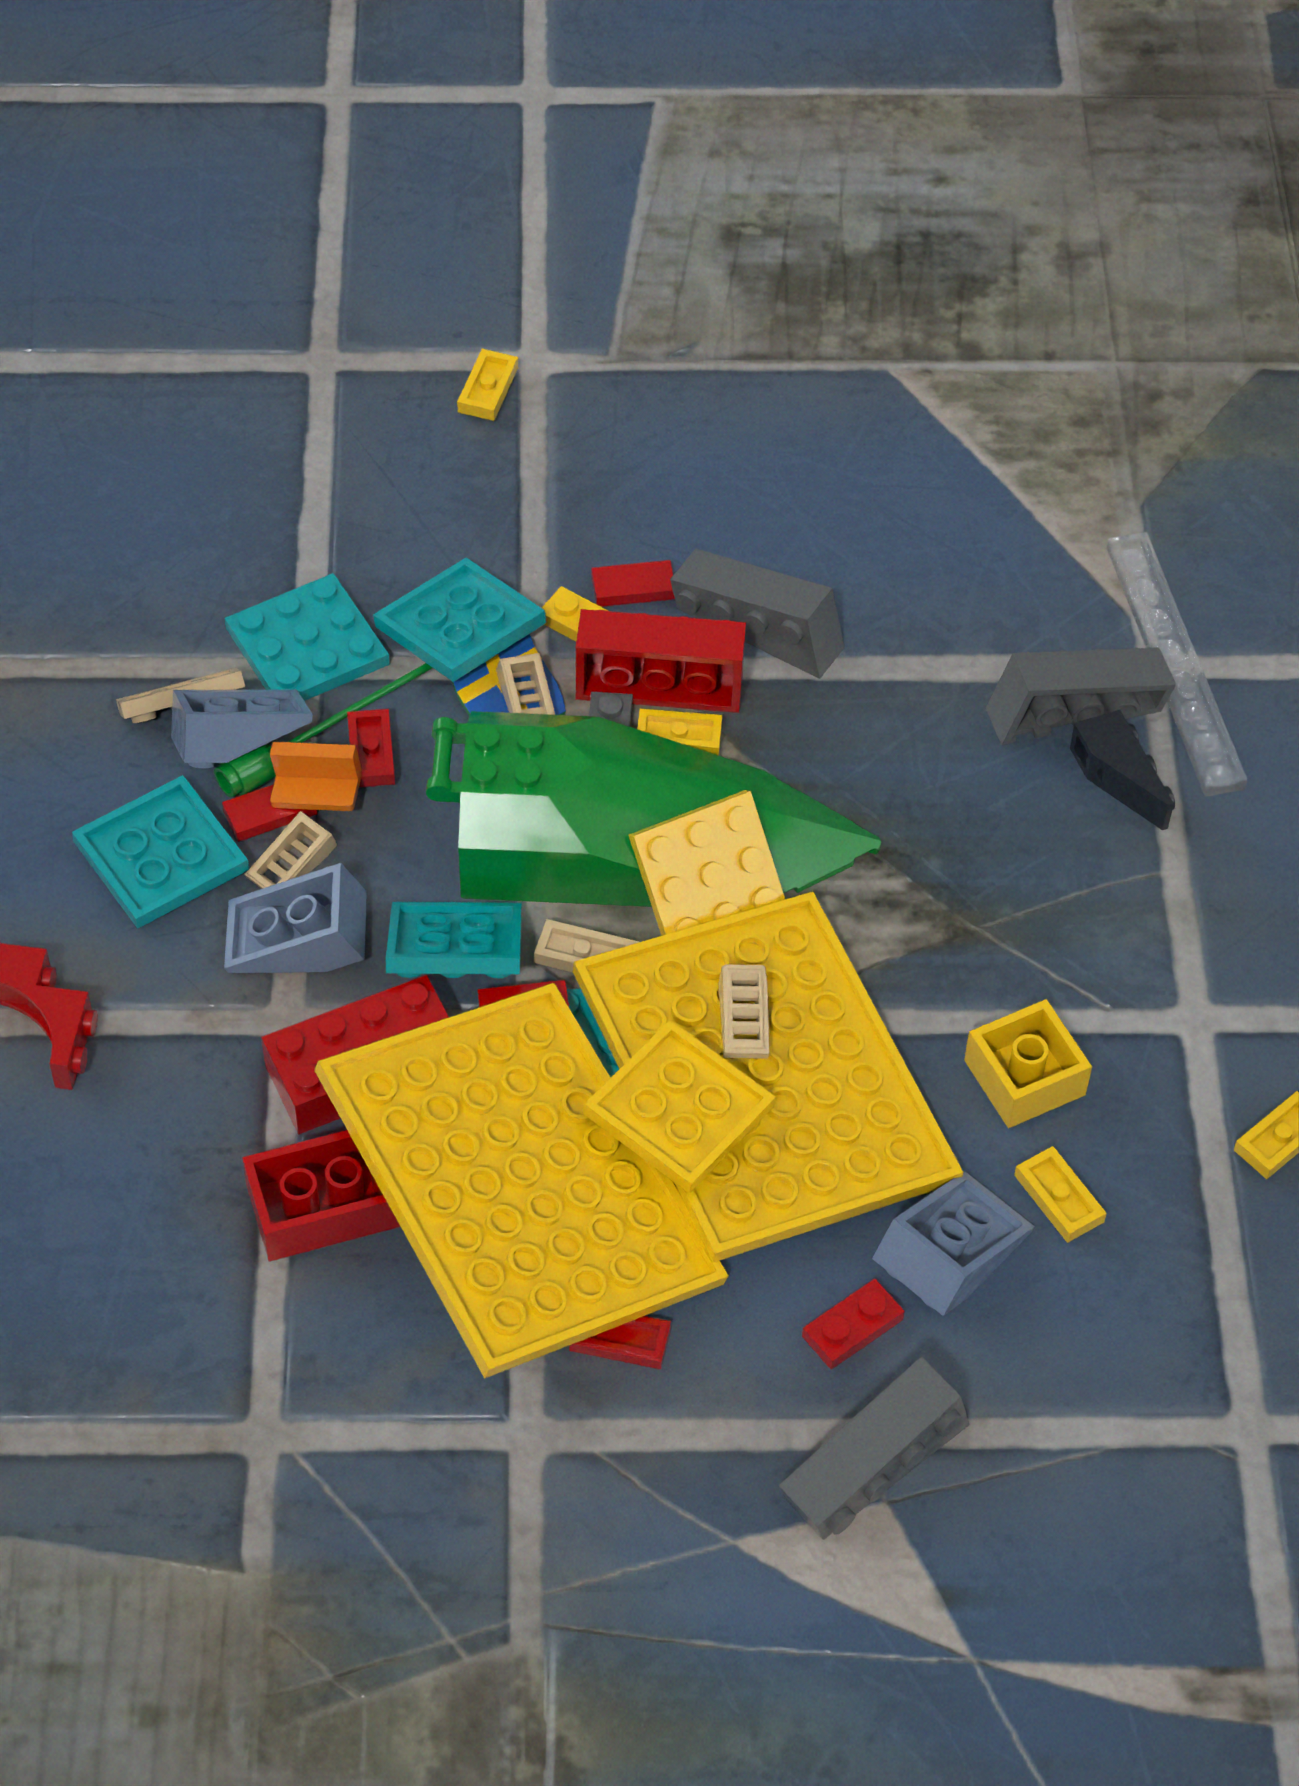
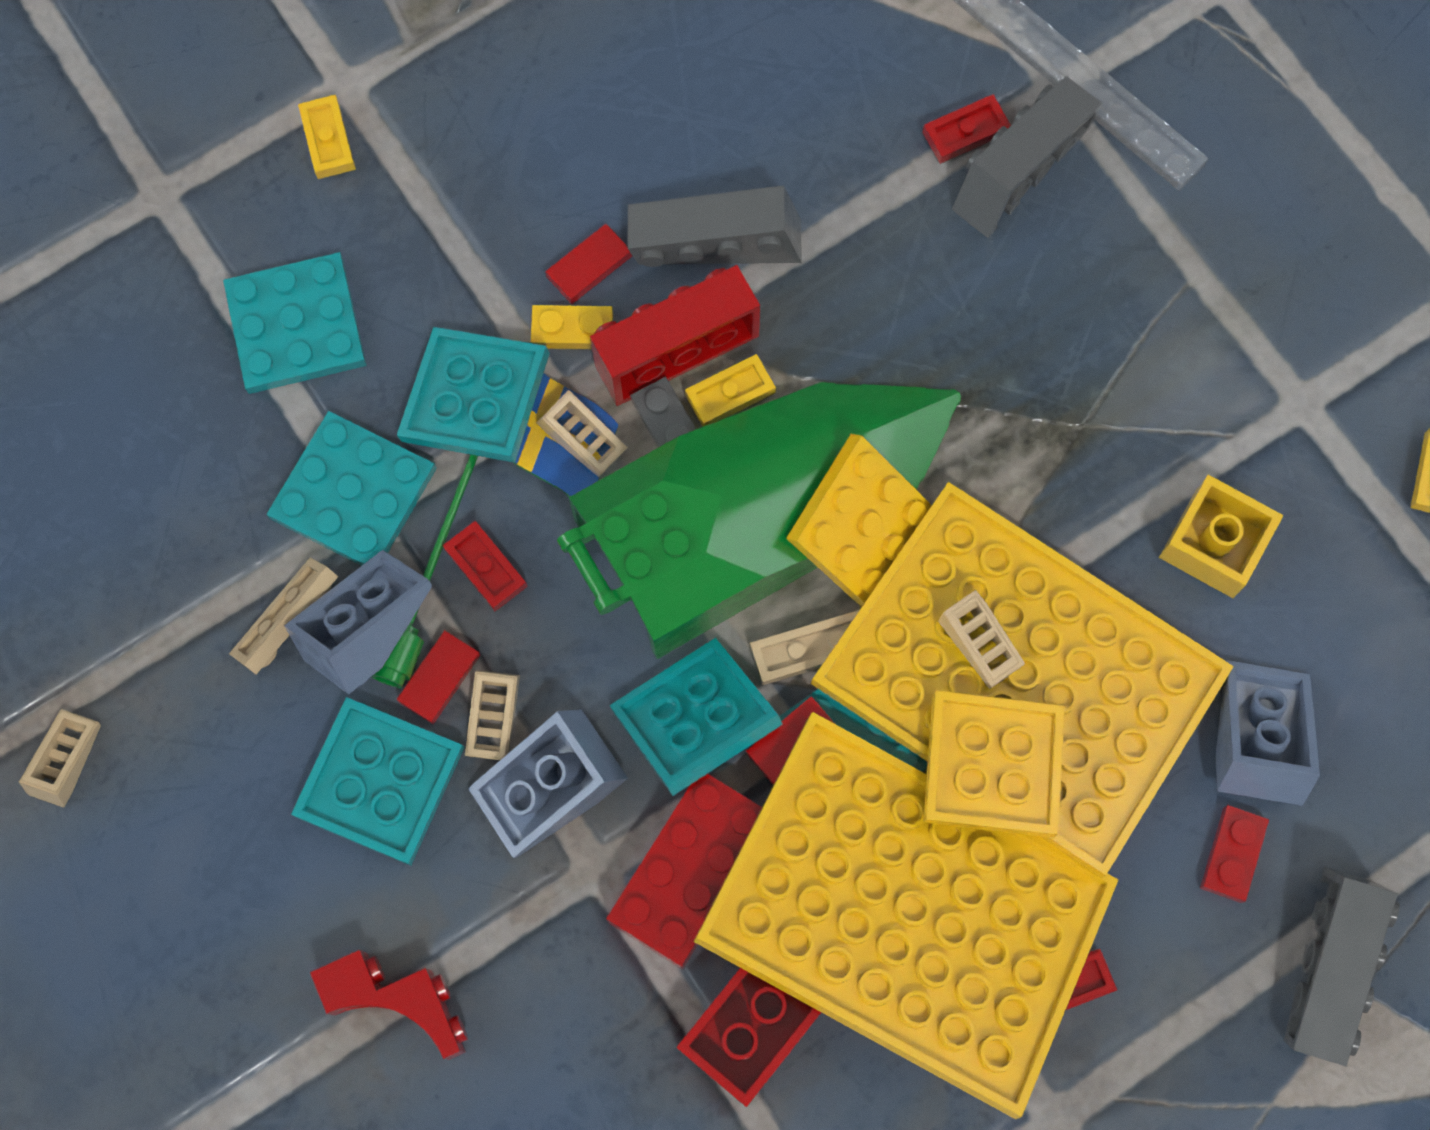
camera: 30 degrees left, 20 degrees up
(315, 776) = (465, 632): orange panel -> none
(357, 501) = (294, 323): none -> teal plate
(1030, 640) = (965, 128): none -> red plate
(1060, 1194) = (1314, 635): yellow plate -> none
(1116, 763) = (1099, 204): black slope -> none

